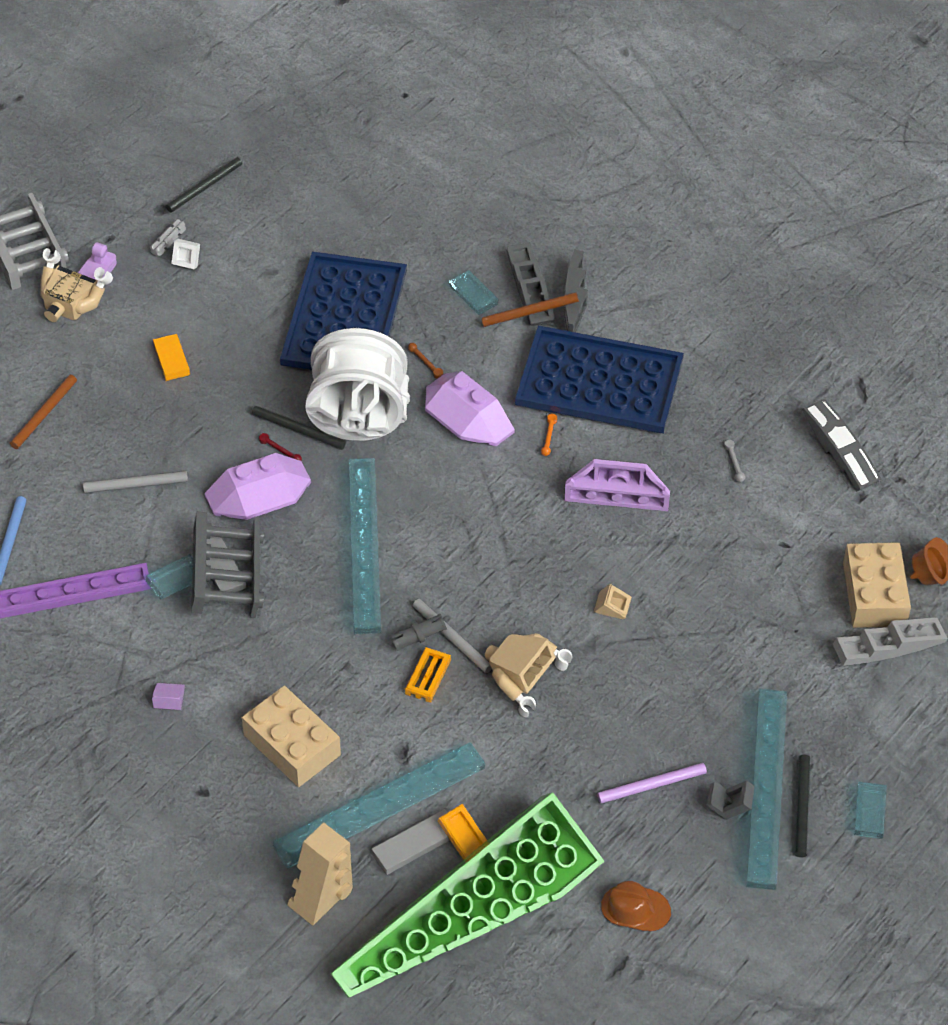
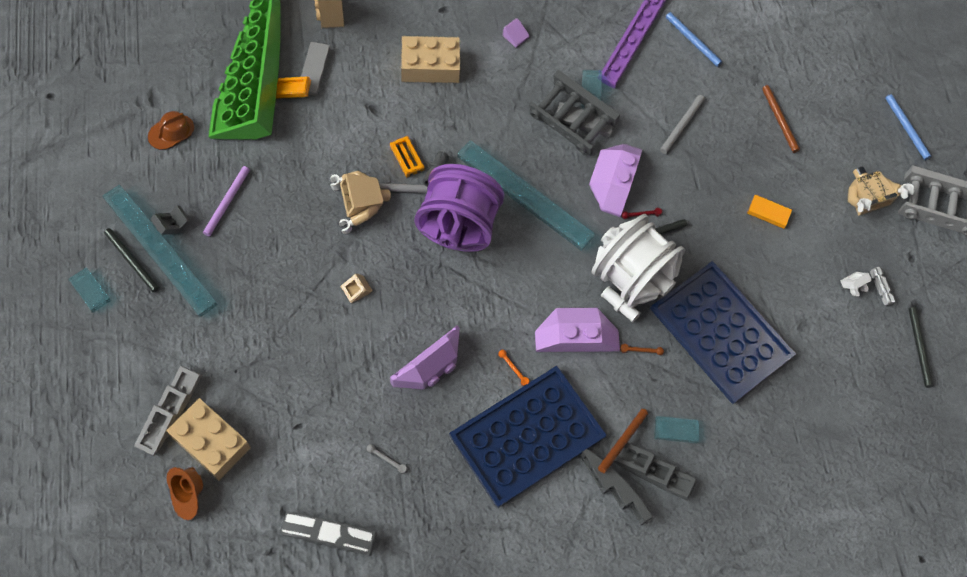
camera: 125 degrees right, 15 degrees up
(99, 258) = (884, 226): lavender piece -> none
(387, 800) = (351, 73): clear light blue plate -> none
(454, 550) = (459, 207): none -> medium lavender wheel

